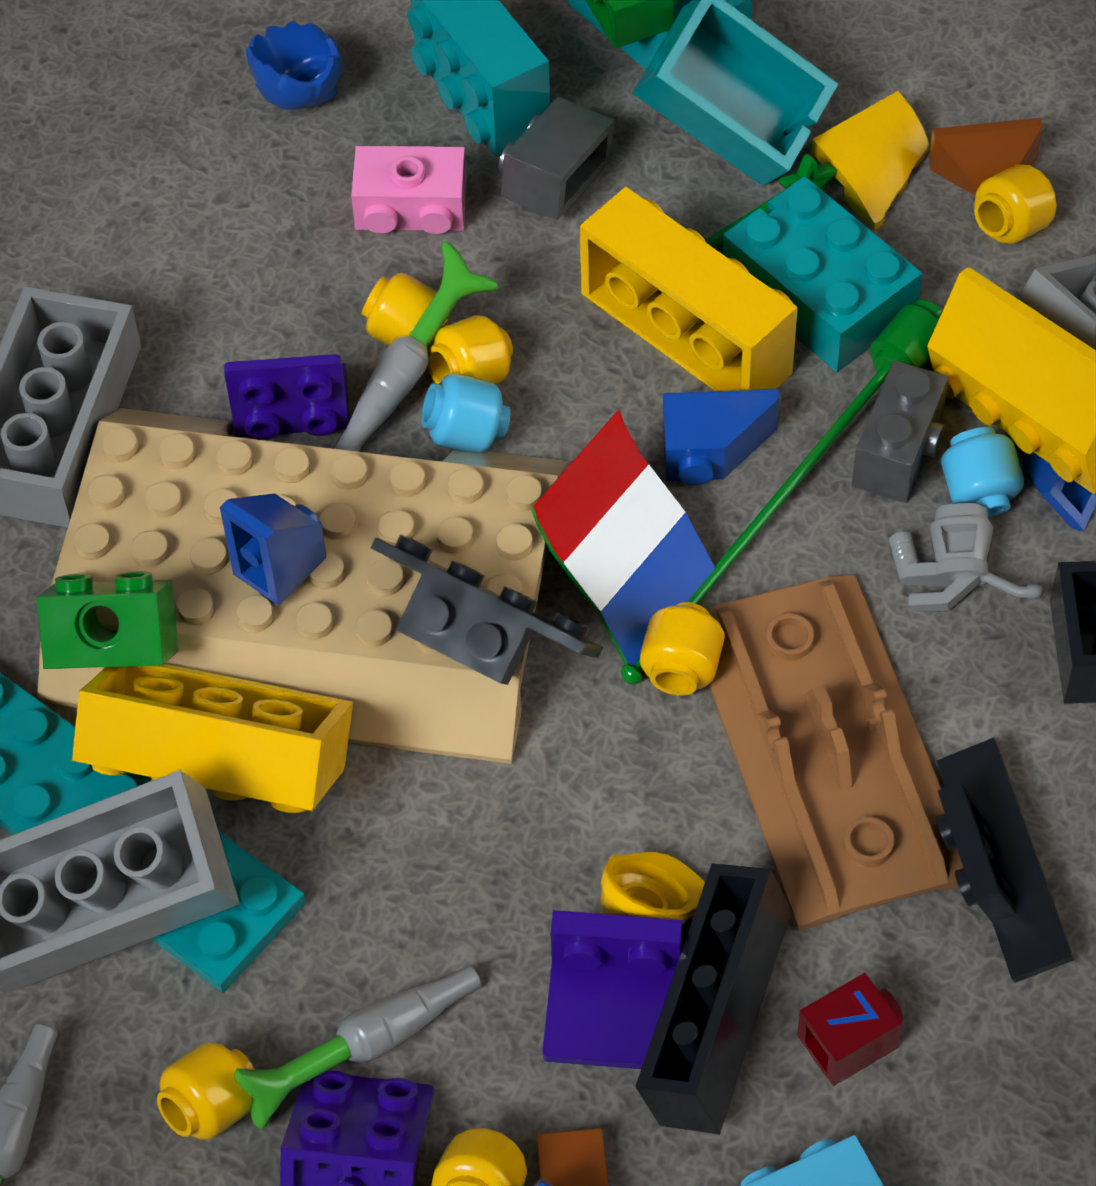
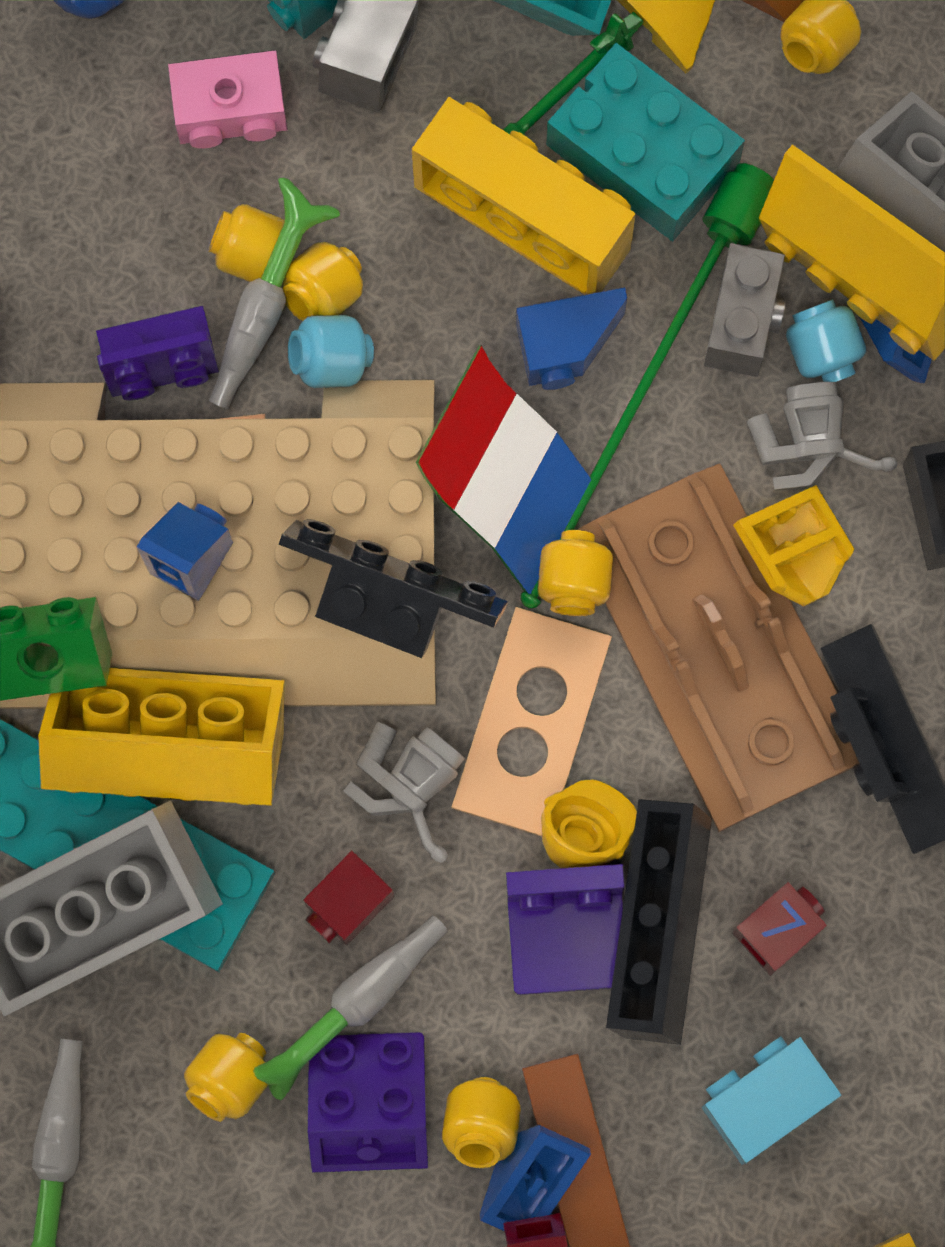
camera: 10 degrees left, 20 degrees up
(377, 931) = (346, 900): none -> dark red brick
(480, 821) = (419, 774): none -> light grey piece
(624, 716) = (531, 643): none -> light nougat piece
(925, 656) = (797, 545): none -> yellow slope

